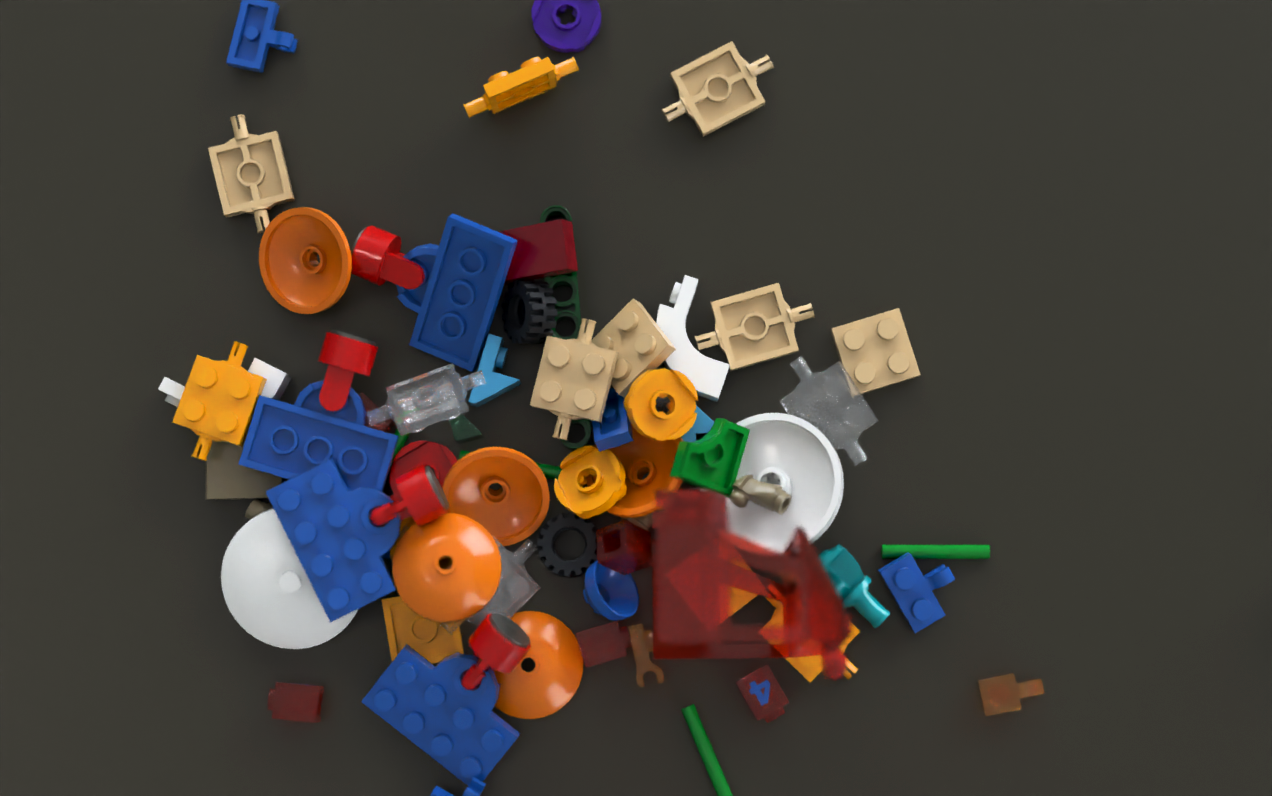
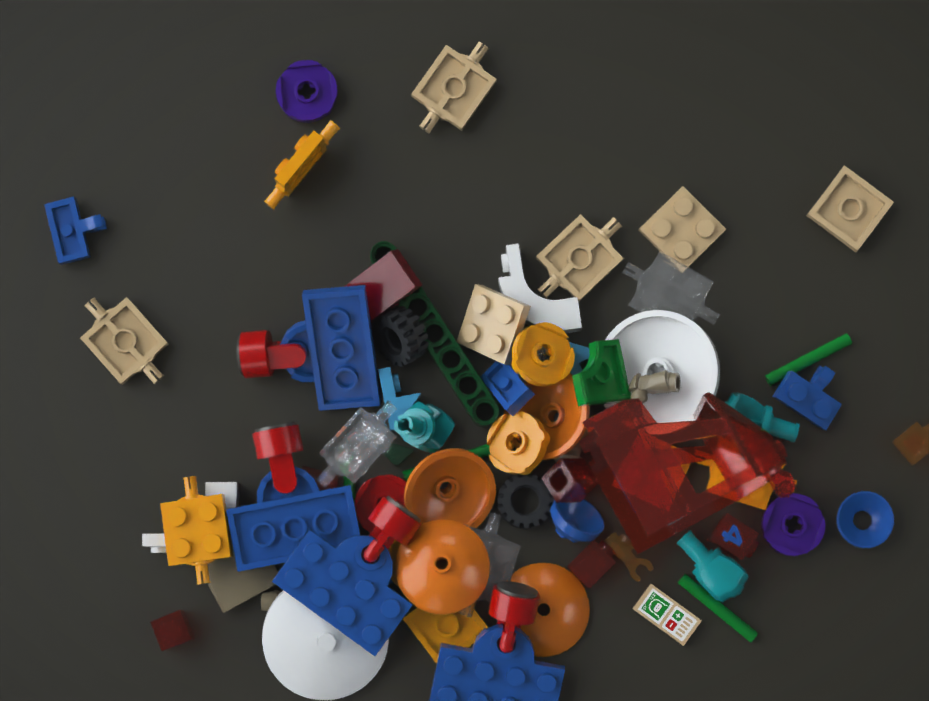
camera: 30 degrees left, 0 degrees up
(144, 489) = (172, 630): none -> clear red brick
(291, 264) = (194, 397): orange dish -> none
(505, 416) = (425, 427): none -> teal piece
(574, 379) = (463, 370): tan plate -> none
(652, 736) = (666, 614): none -> tile
(723, 717) = (713, 570): none -> teal piece
(850, 712) = (776, 532): none -> dark purple plate
(925, 751) = (881, 519): none -> blue piece
(1059, 419) = (850, 208): none -> tan plate

